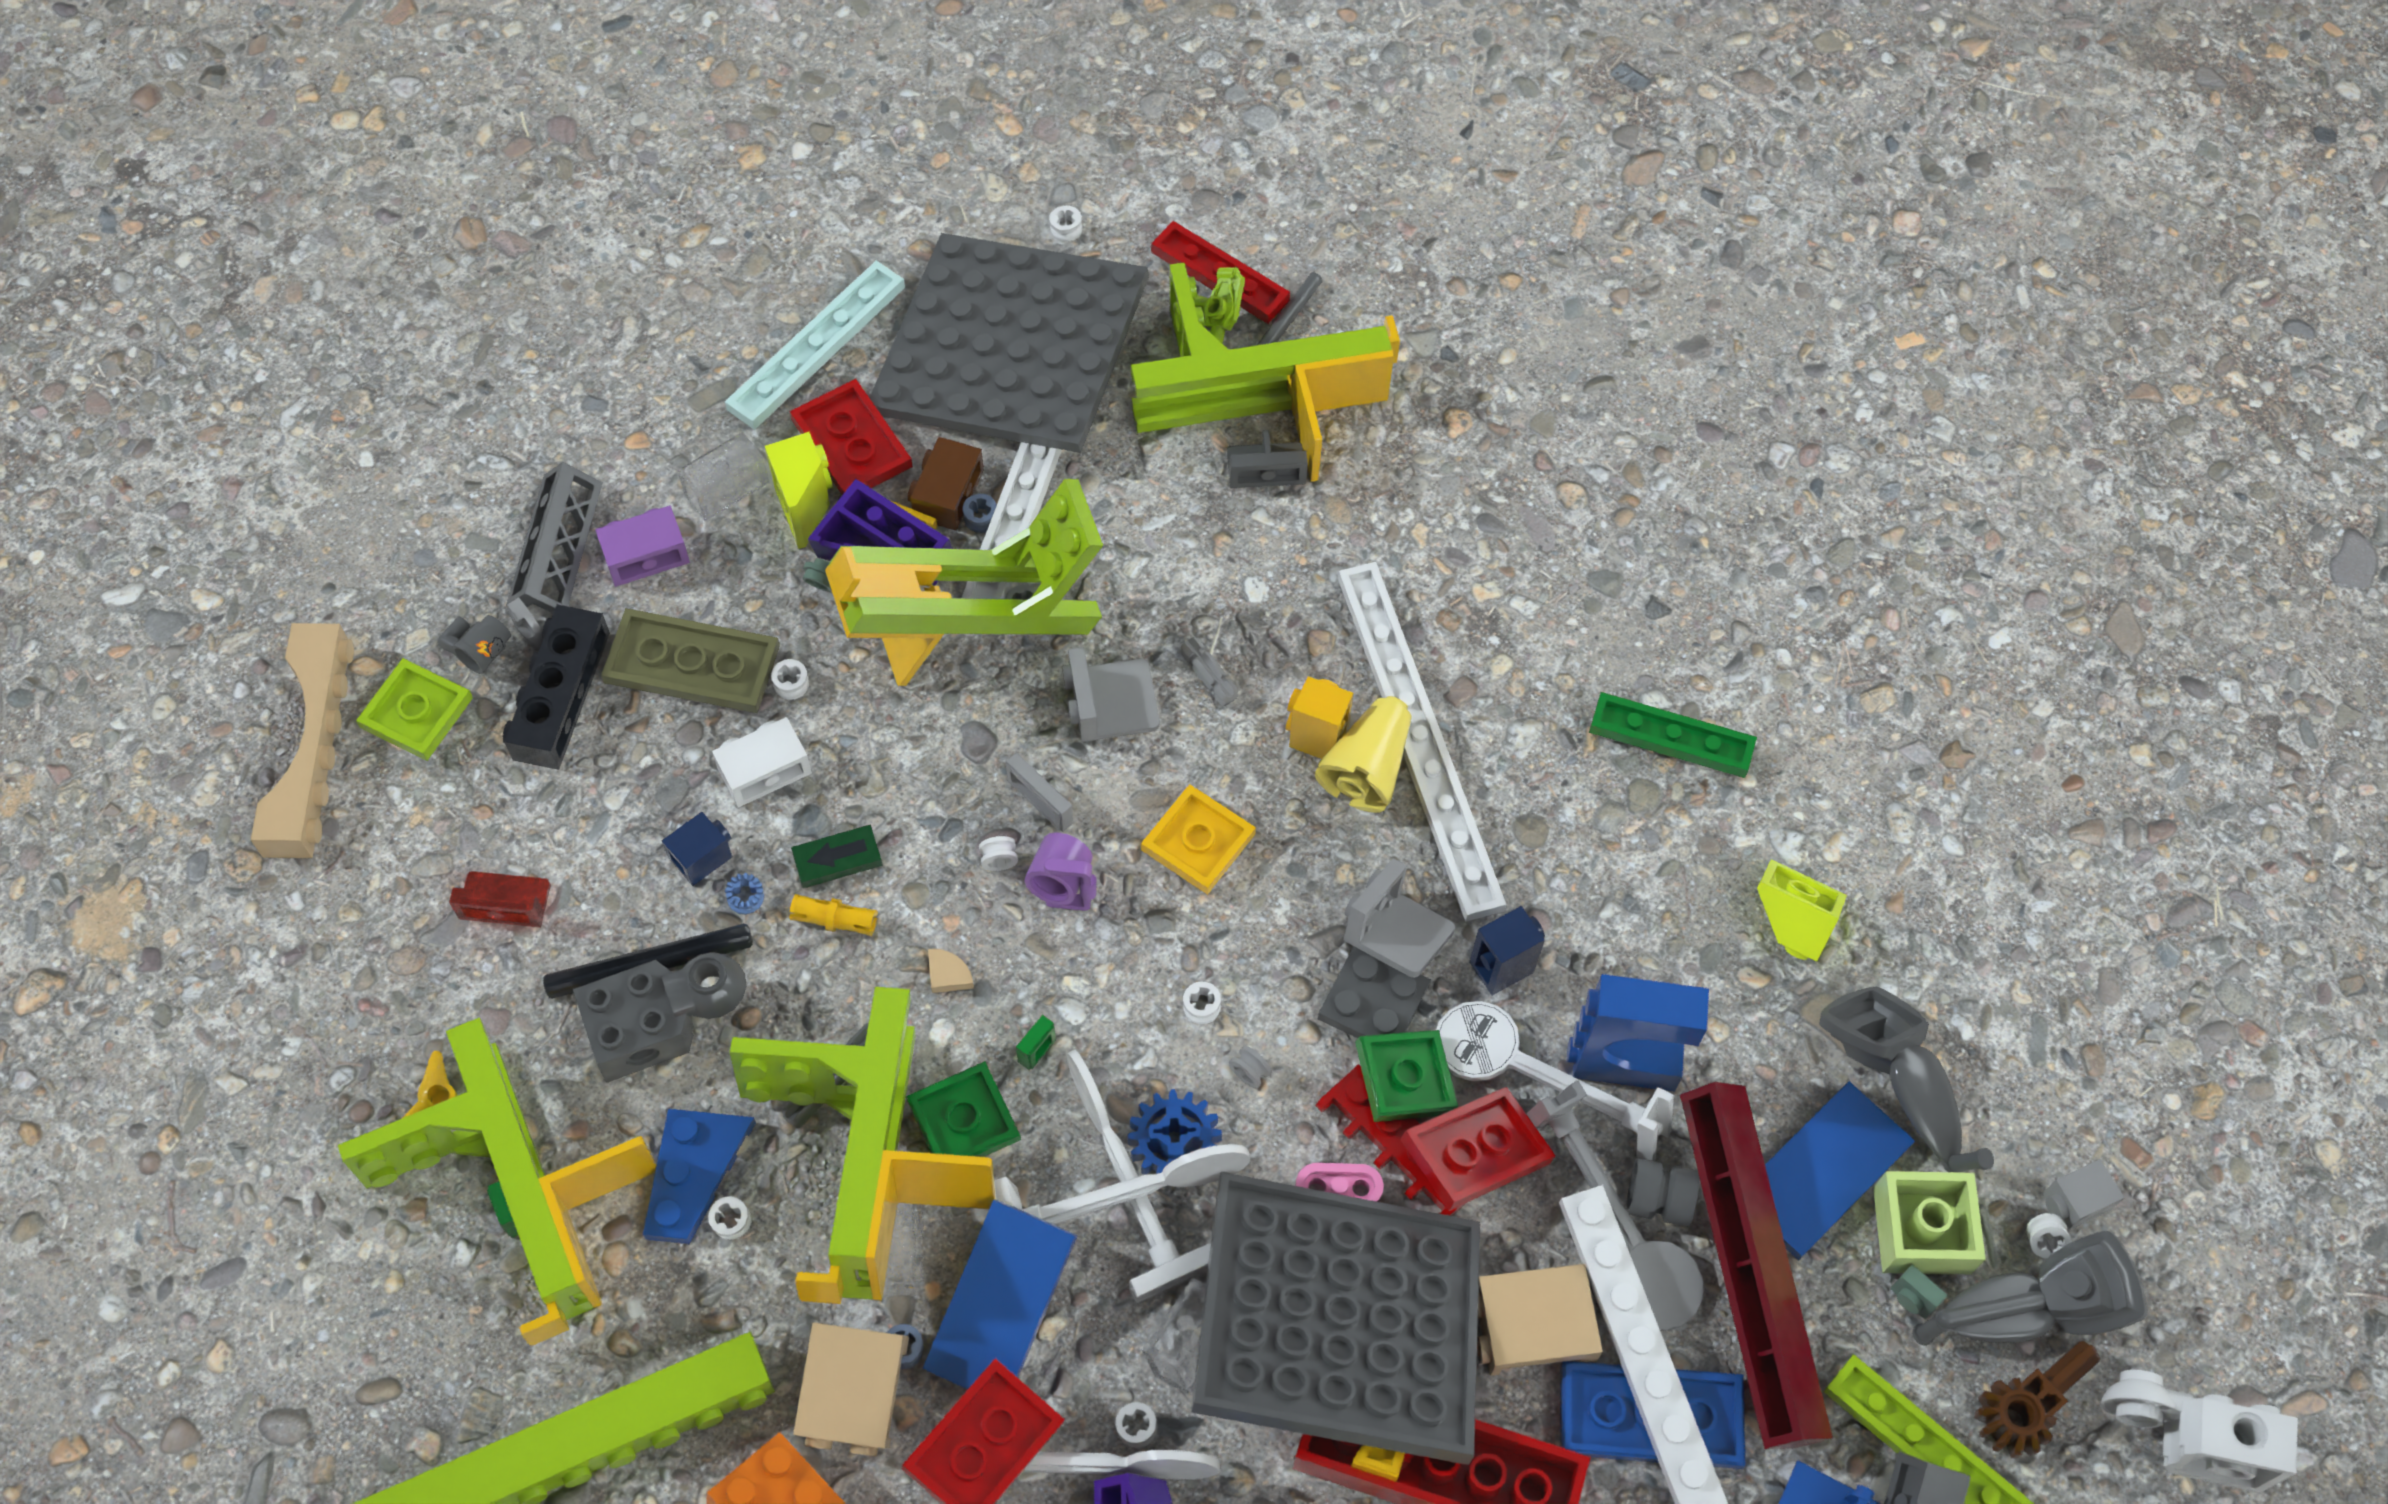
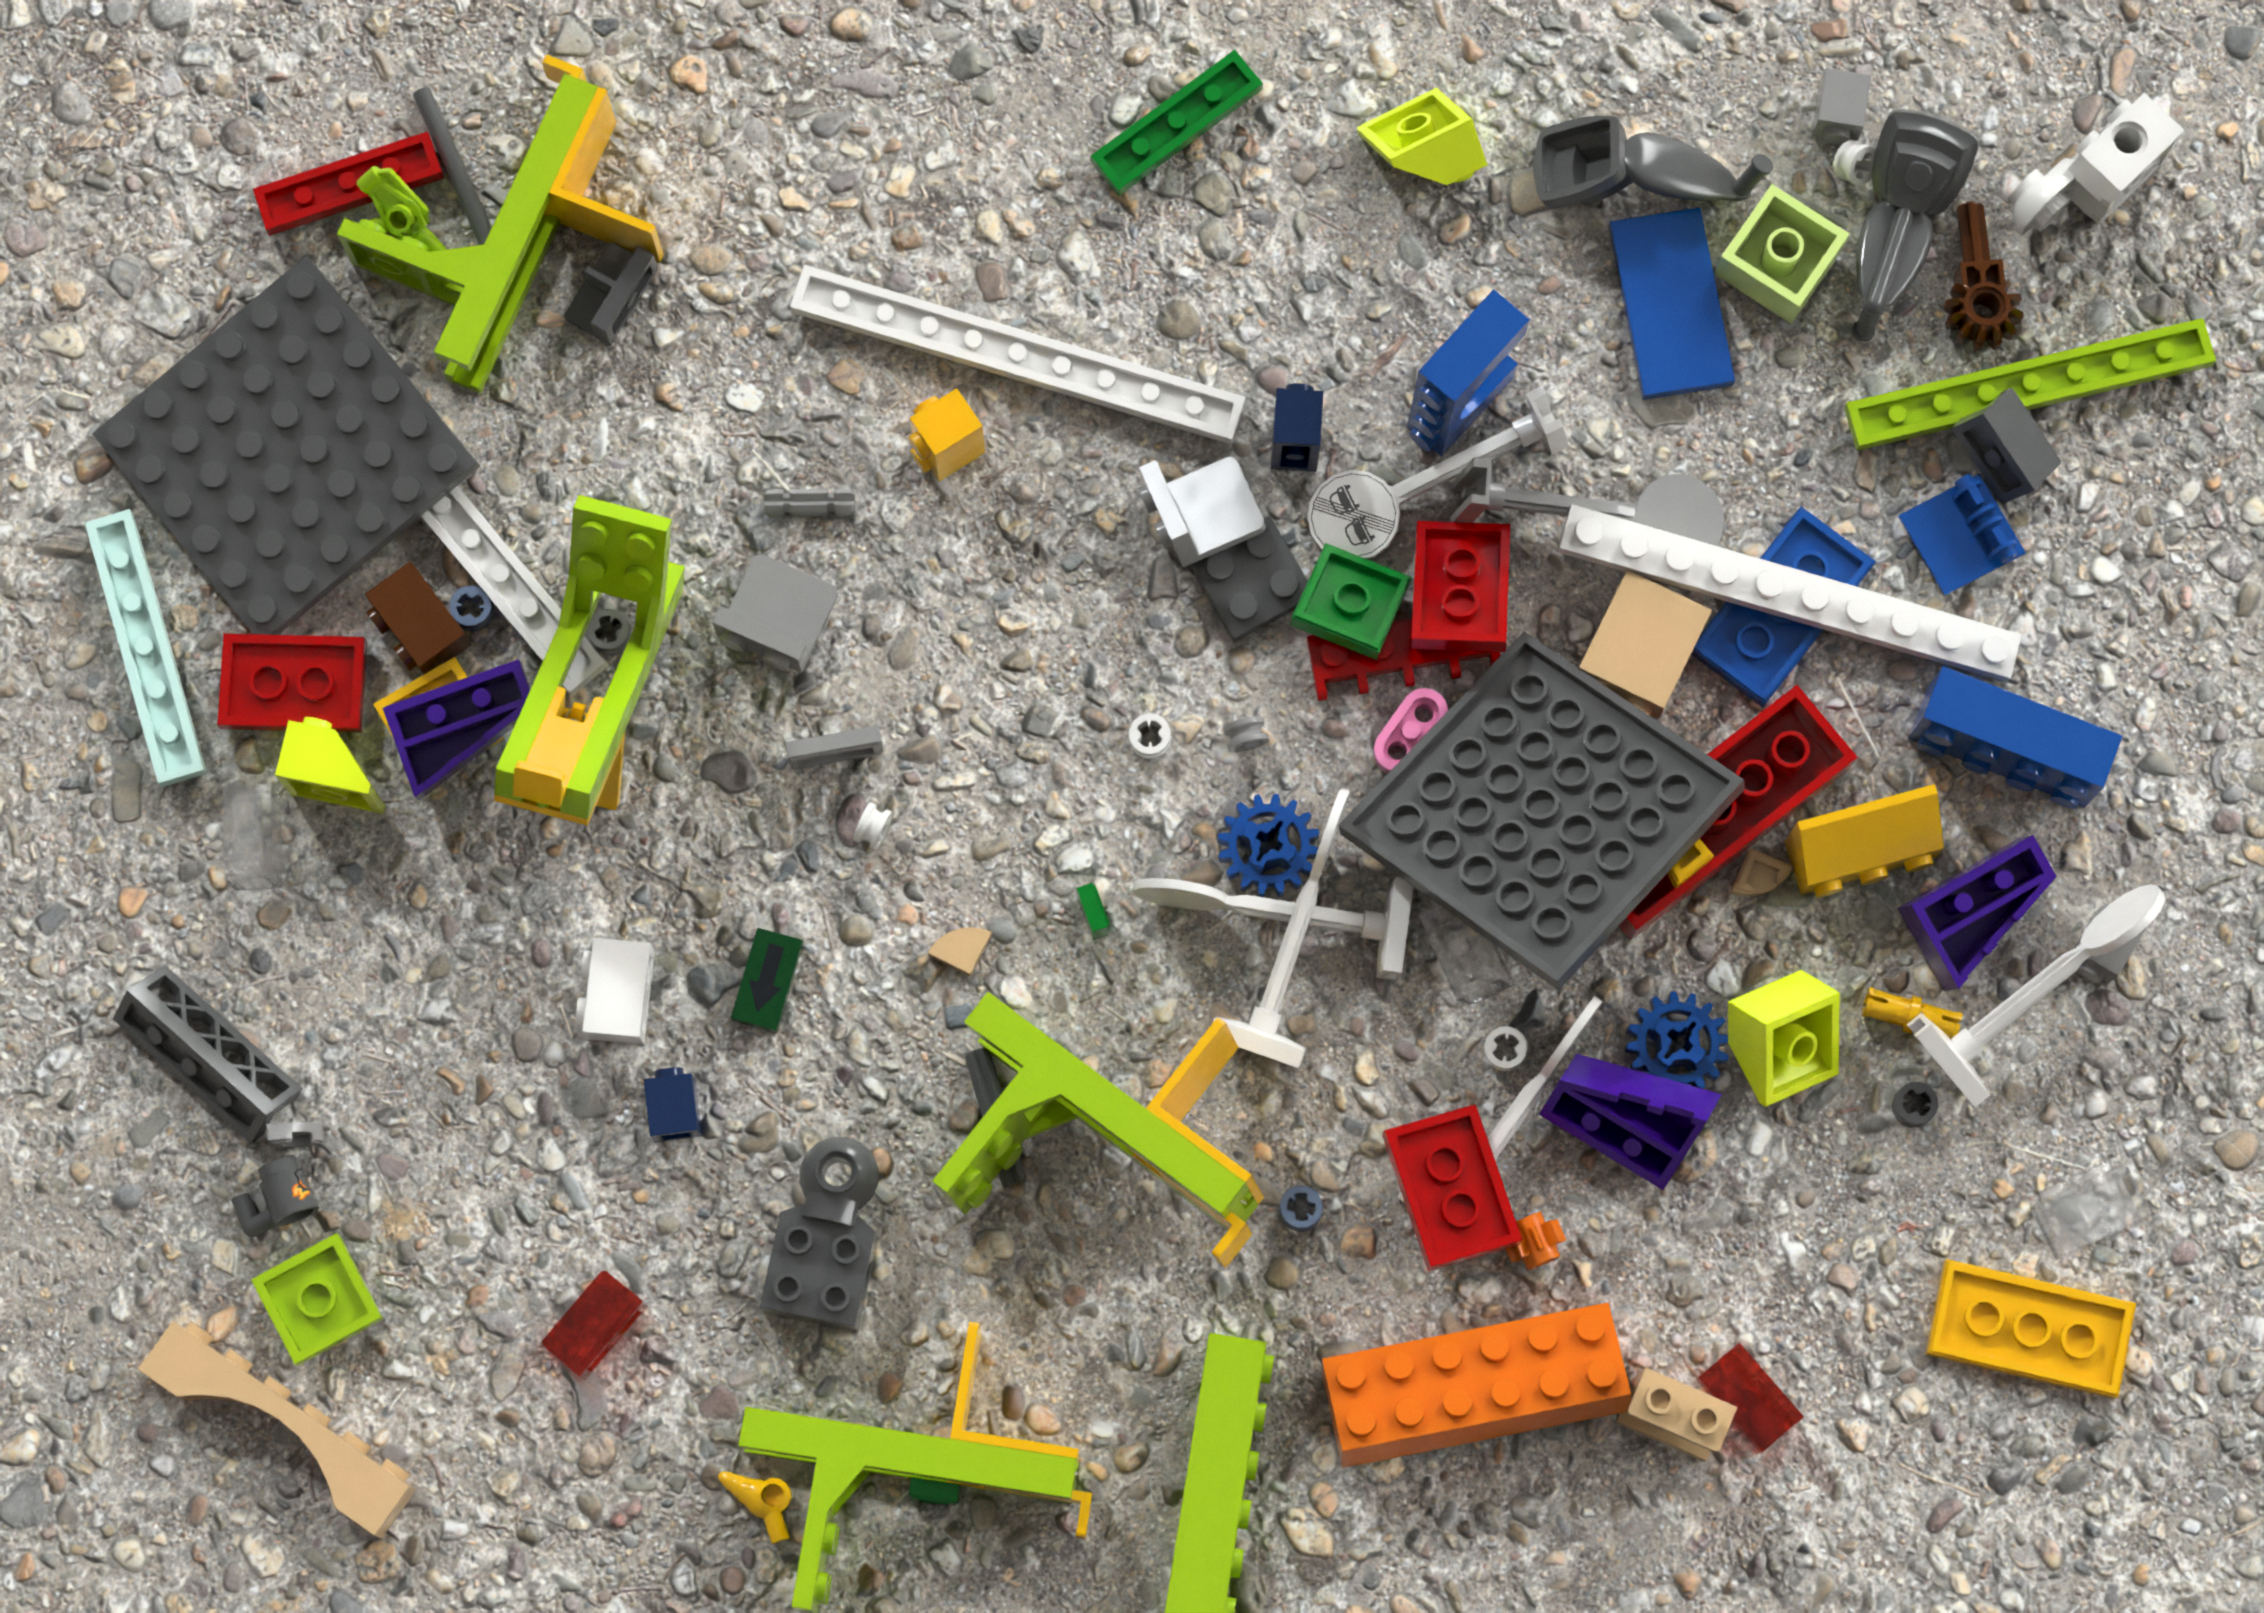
camera: 55 degrees left, 15 degrees up
(547, 741) = (347, 1082): black brick -> none
(642, 545) = (277, 966): medium lavender brick -> none
(668, 954) = (759, 1223): black axle -> none
(689, 1169) = (996, 1290): blue wing -> none
(691, 660) = (450, 995): olive plate -> none
(734, 887) = (744, 1077): medium blue bush -> none
(738, 1207) = (1067, 1280): white bush -> none
(793, 669) = (525, 901): white bush -> none
(816, 575) = (438, 808): sand green plate -> none
(833, 915) = (830, 1019): yellow pin -> none
(849, 1388) = (1317, 1273): tan panel -> none
(964, 1114) = (1121, 1022): green plate -> none
(1000, 1295) = (1323, 1093): blue tile -> none
(1059, 871) = (937, 780): medium lavender piece -> none
(1067, 232) = (182, 304): white bush -> none
(1198, 839) = (984, 630): yellow plate -> none
(1368, 756) = (1016, 414): light yellow cone -> none
(1663, 1192) = (1598, 462): dark grey wheel -> none
(1755, 1267) = (1722, 426): dark red brick -> none
(1918, 1292) = (1830, 309): sand green plate -> none

